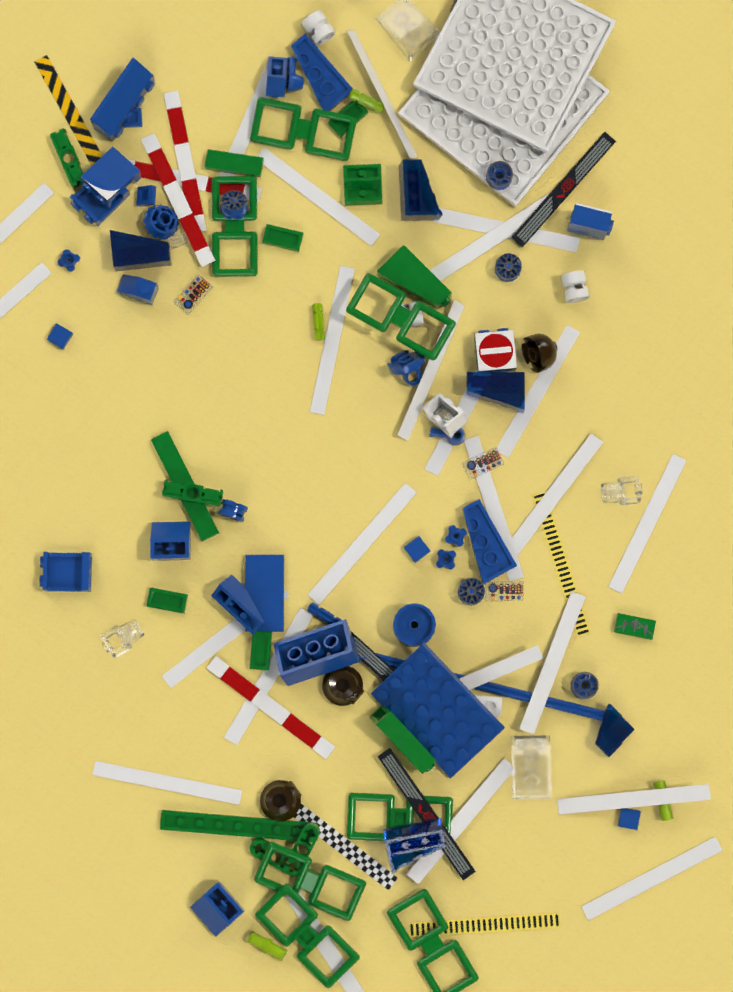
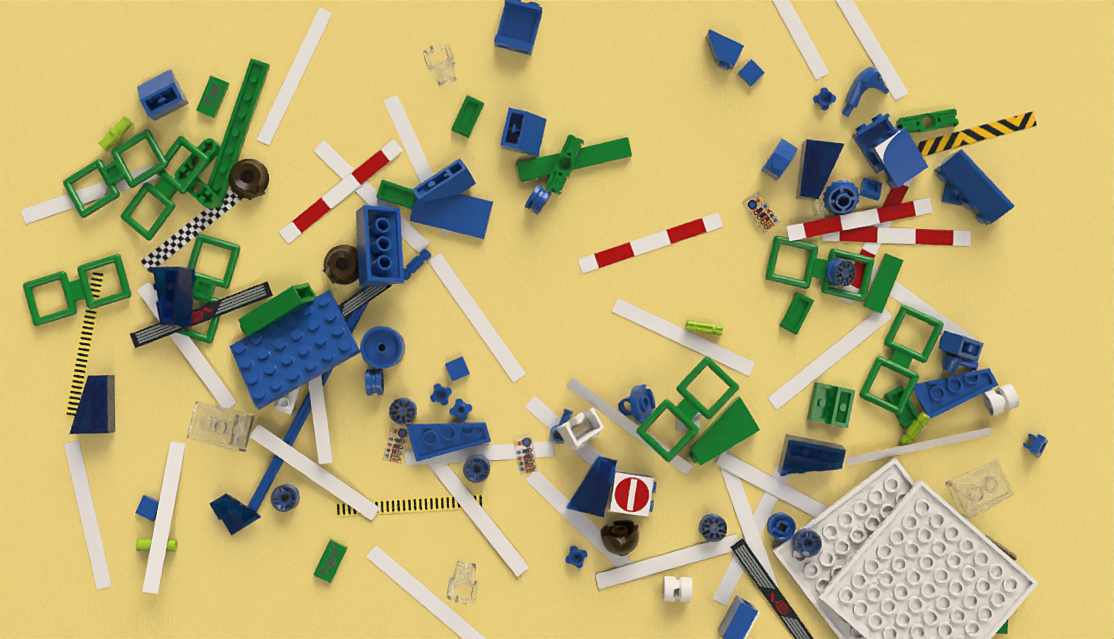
camera: 105 degrees right, 5 degrees up
(43, 226) = (866, 79): none -> blue animal
(44, 367) = (724, 50): none -> blue slope
(207, 858) = (212, 97): none -> green tile
(248, 393) = (650, 242): none -> sticker
(449, 625) = (374, 381): none -> blue wheel
(453, 223) = (770, 484): none -> white sticker
(489, 211) = (774, 522): none -> blue wheel
(516, 503) = (478, 476): none -> wheel
(543, 894) = (96, 406): none -> clear blue wedge
(553, 305) = (665, 562): none -> white sticker
(569, 385) = (571, 557): none -> blue plate

